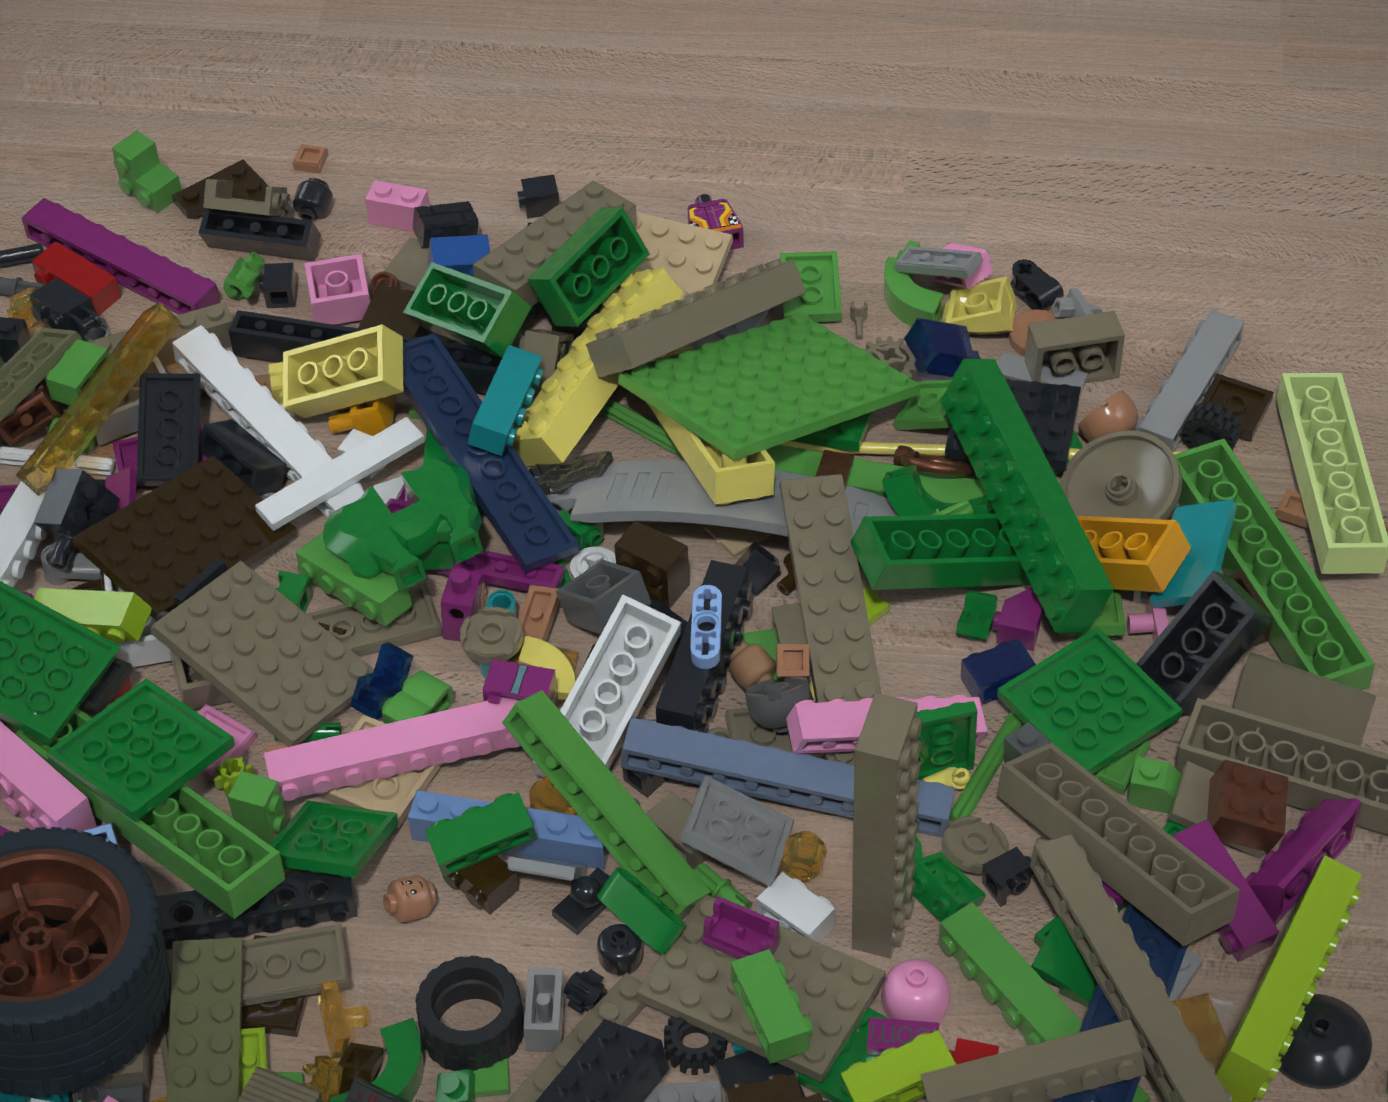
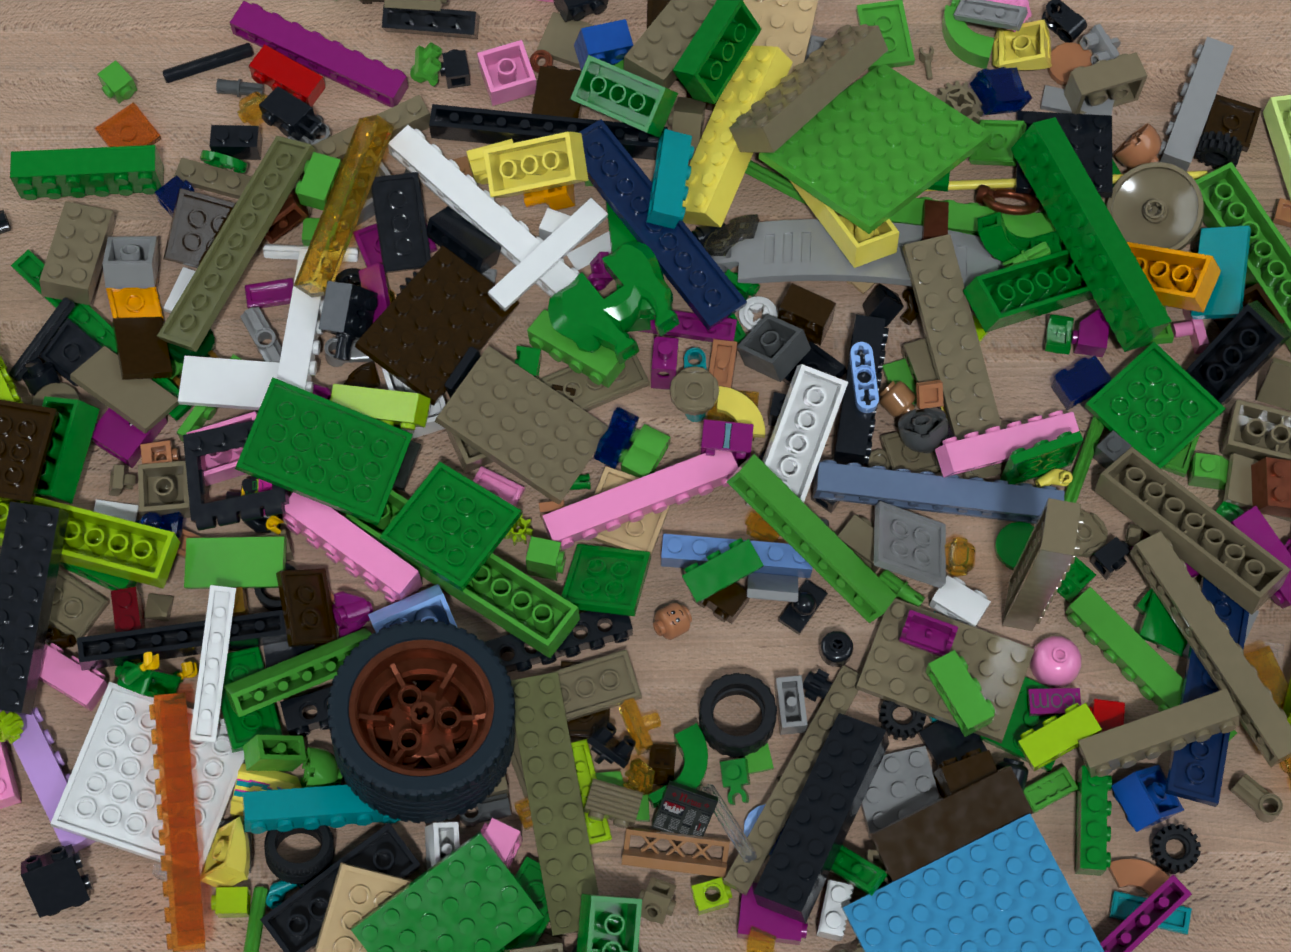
camera: 10 degrees left, 20 degrees up
(290, 1038) = (609, 747): none -> black hips
(641, 910) = (850, 619): green beam -> none

